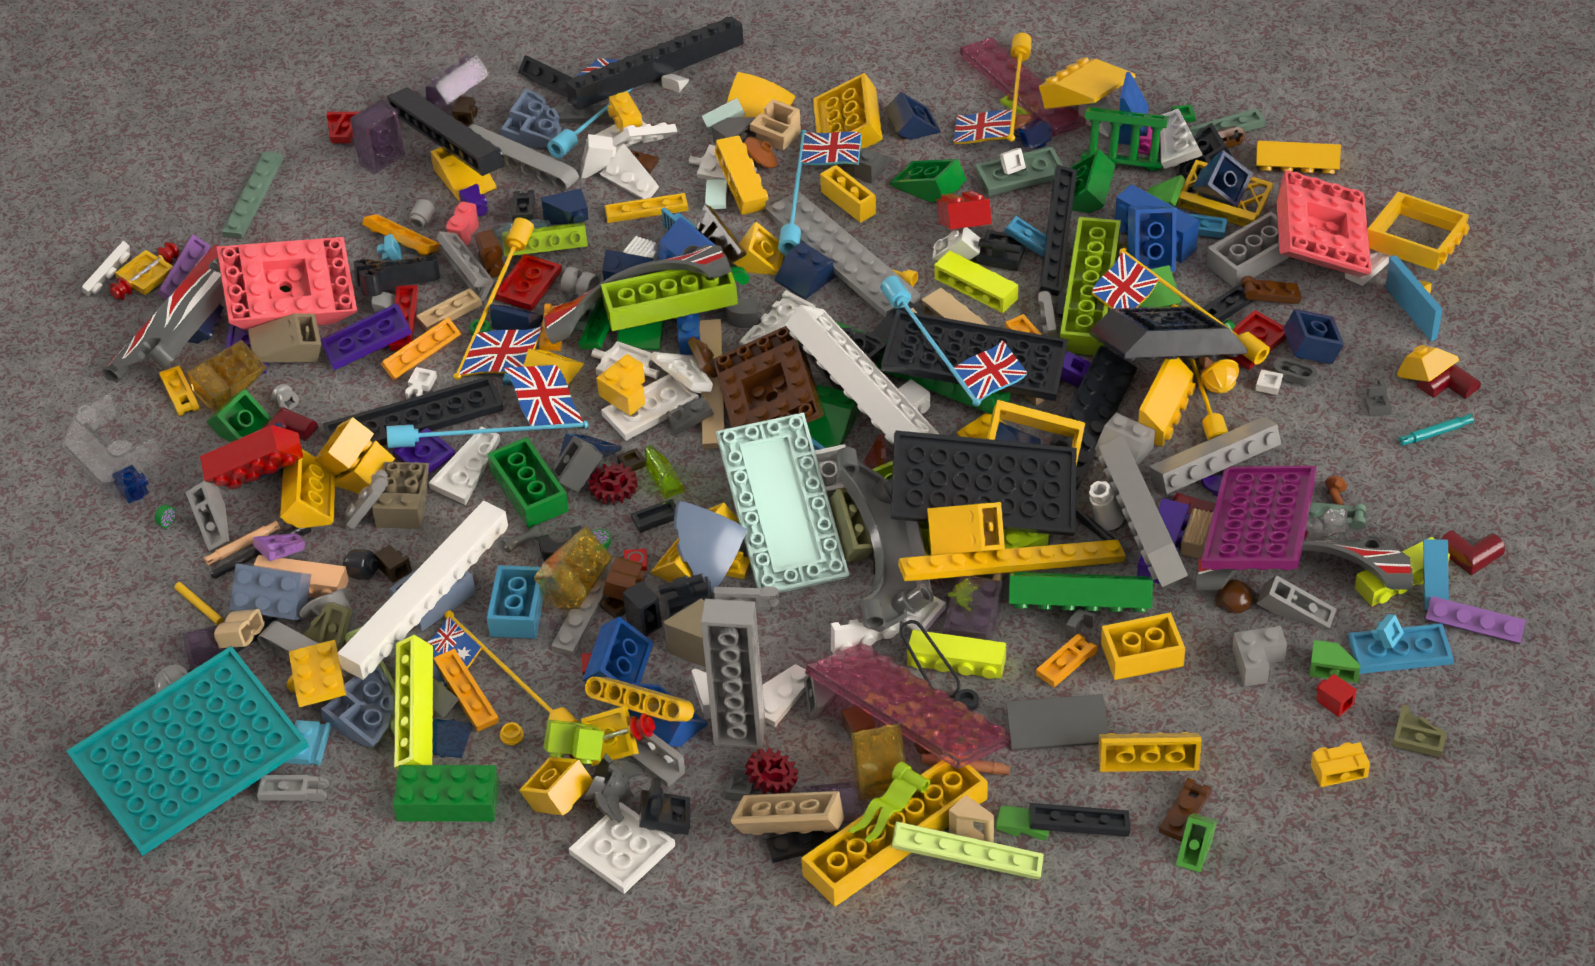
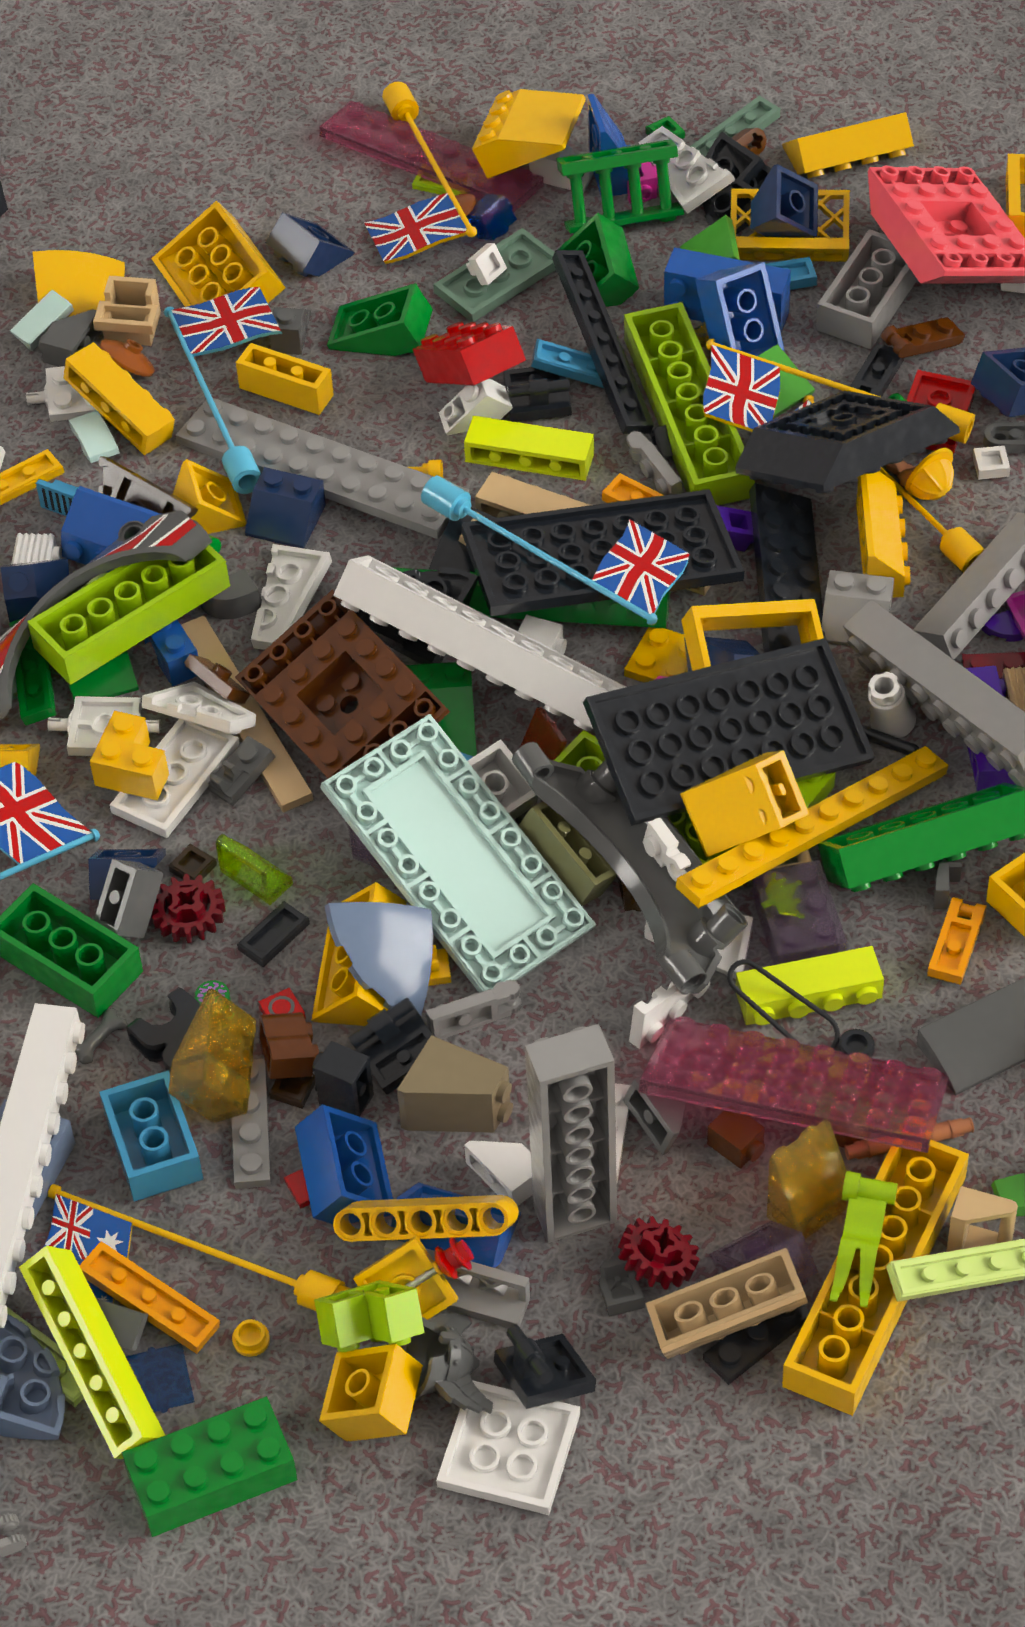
camera: 25 degrees left, 5 degrees up
(904, 537) = (663, 845): none -> white plate

